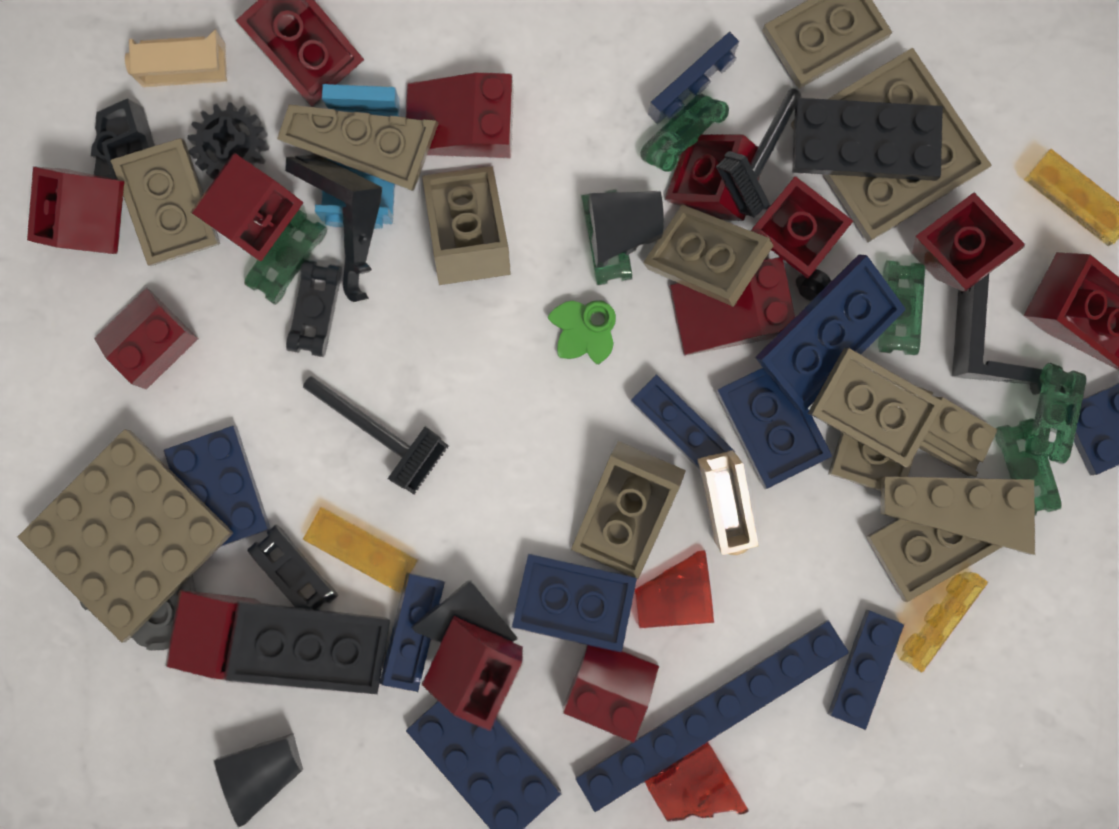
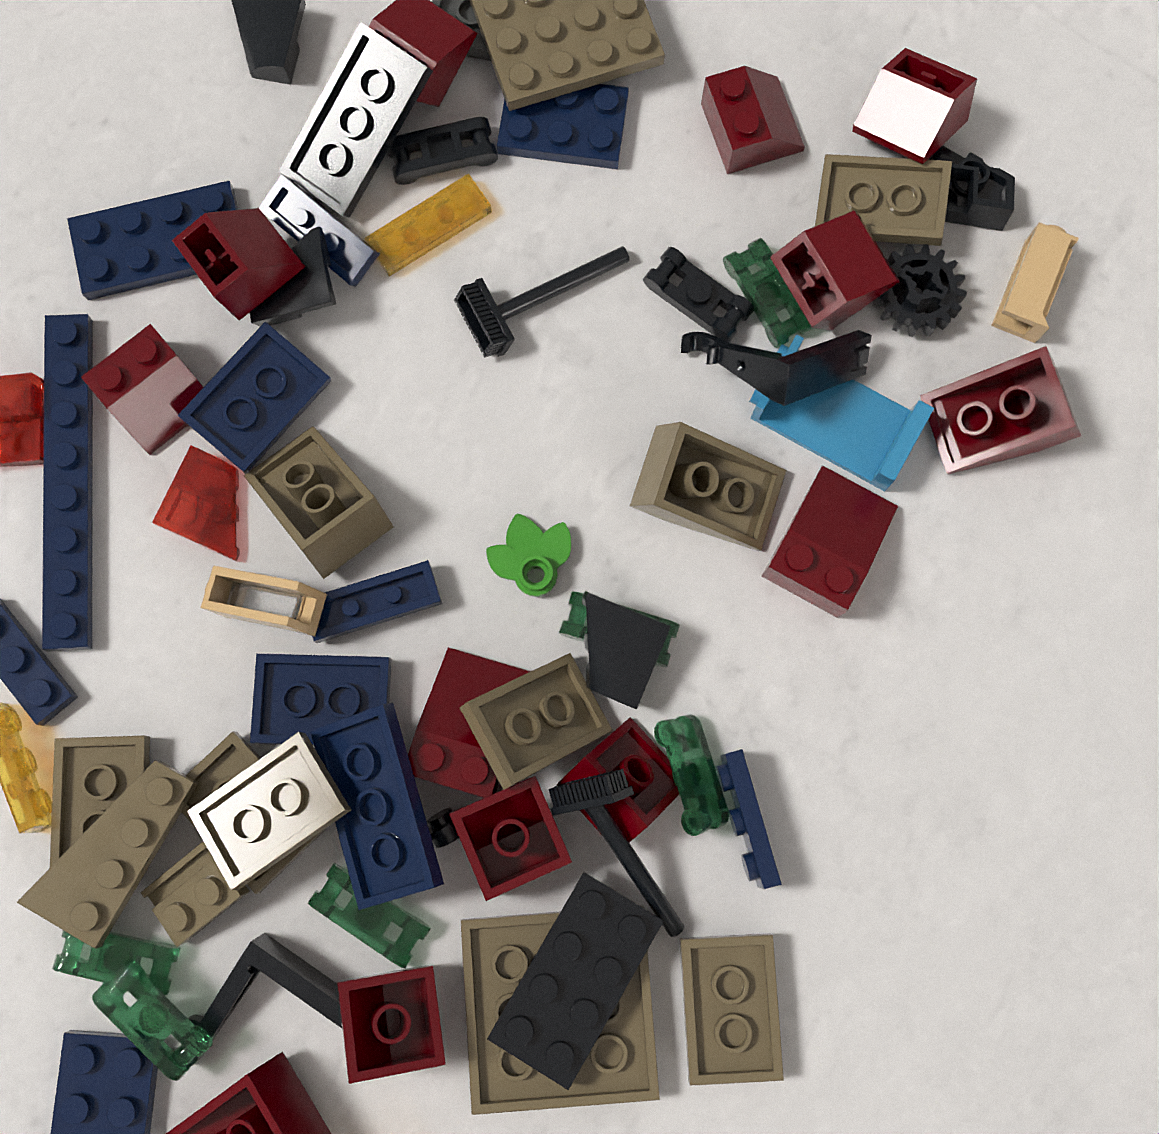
camera: 120 degrees right, 5 degrees down
(373, 144) = (848, 425): dark tan wing -> none

